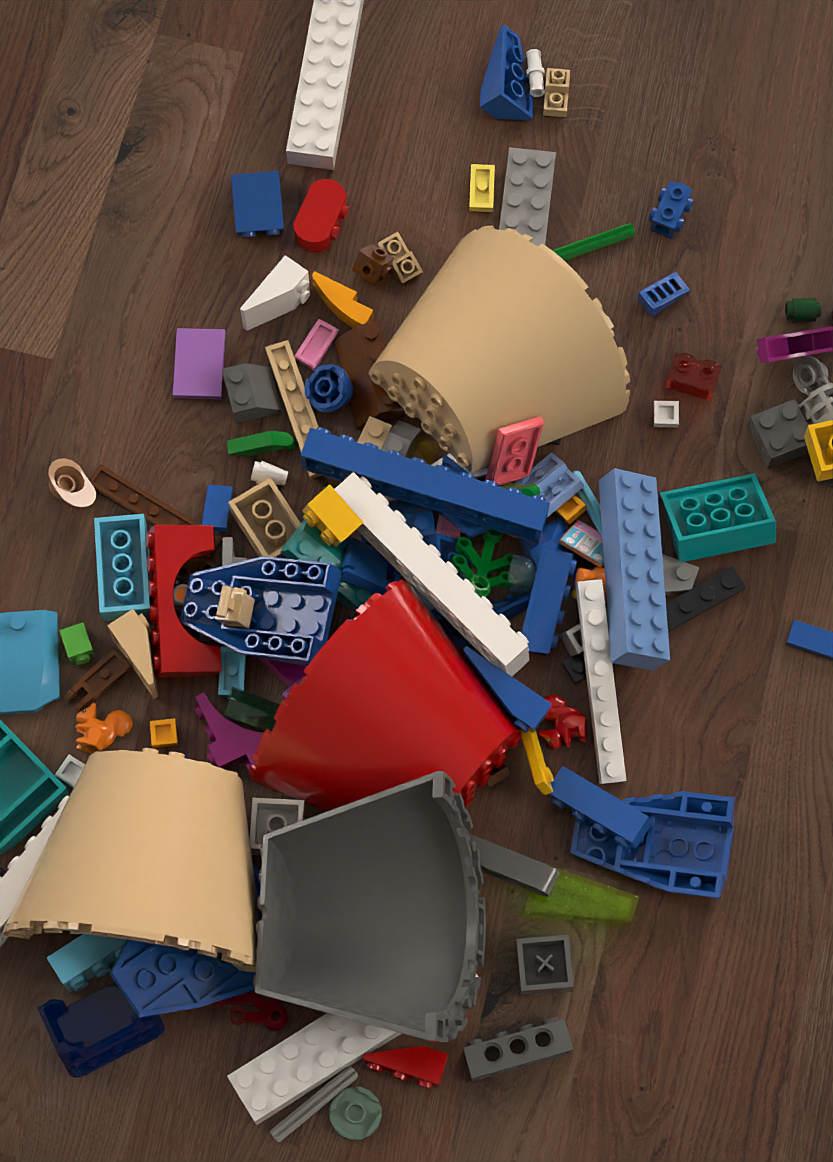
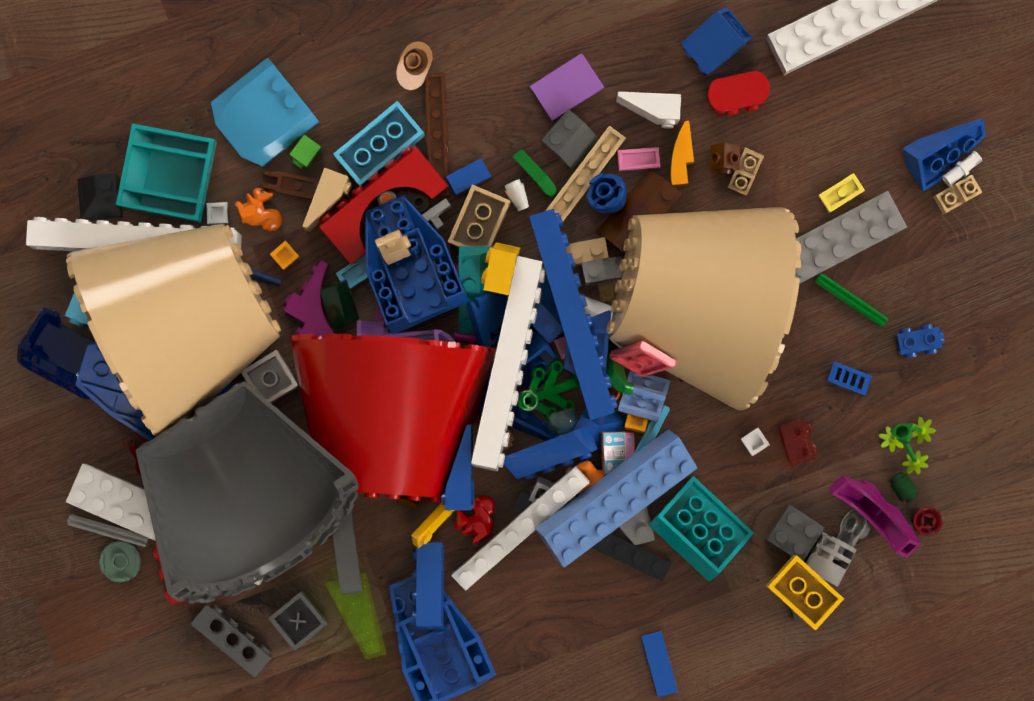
camera: 55 degrees right, 15 degrees up
(753, 268) = (903, 434): none -> lime plant

